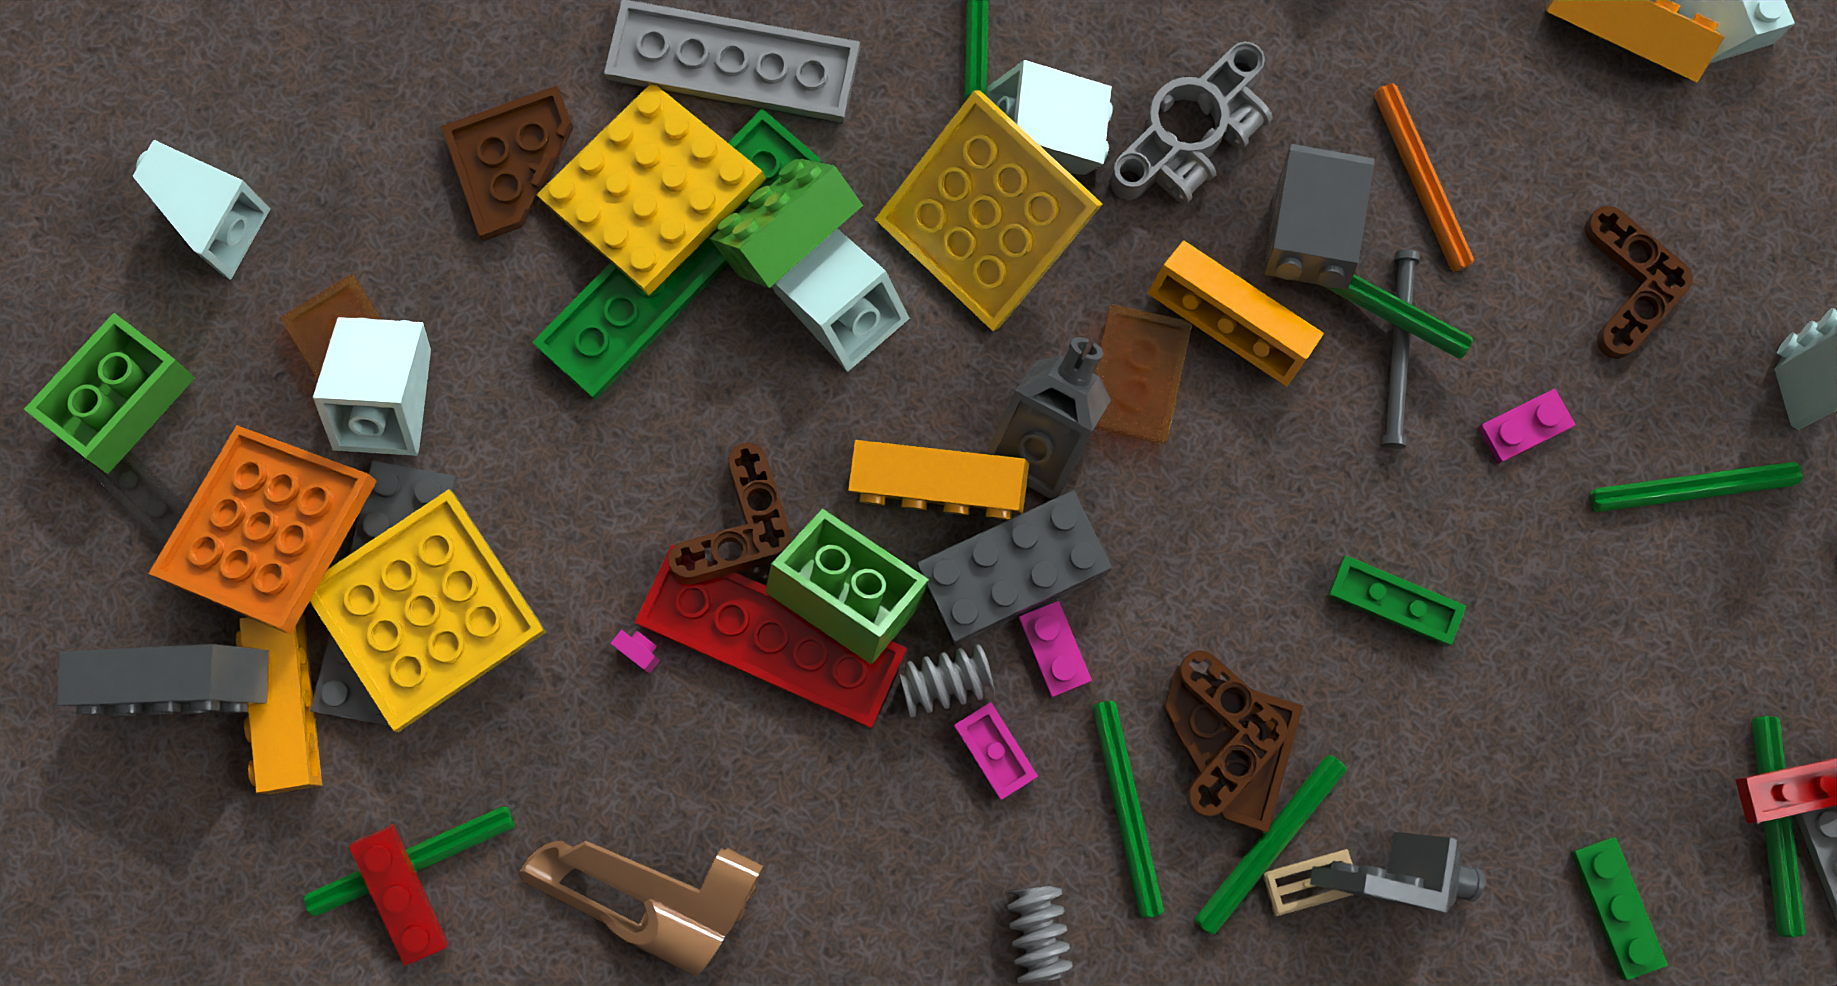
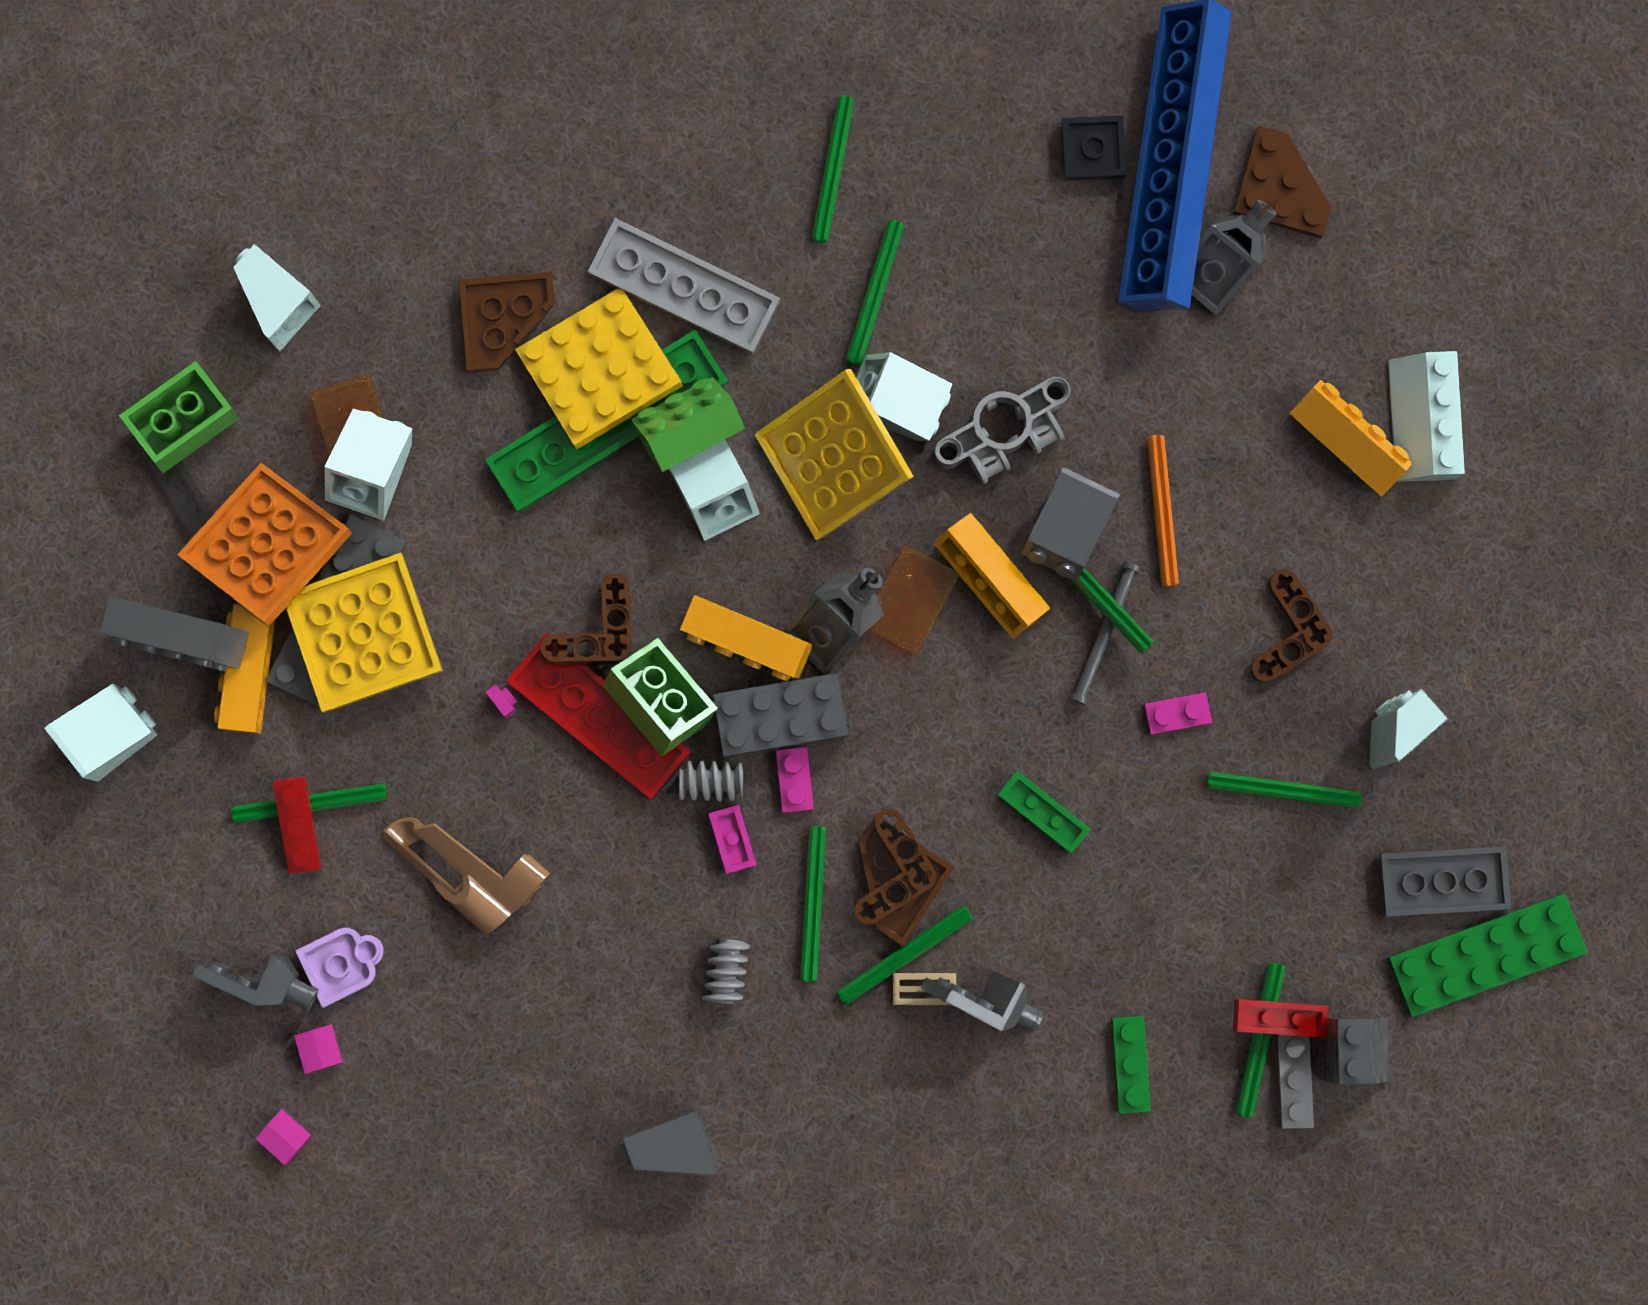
camera: 10 degrees right, 5 degrees up
(97, 843) = (102, 732): none -> light aqua slope

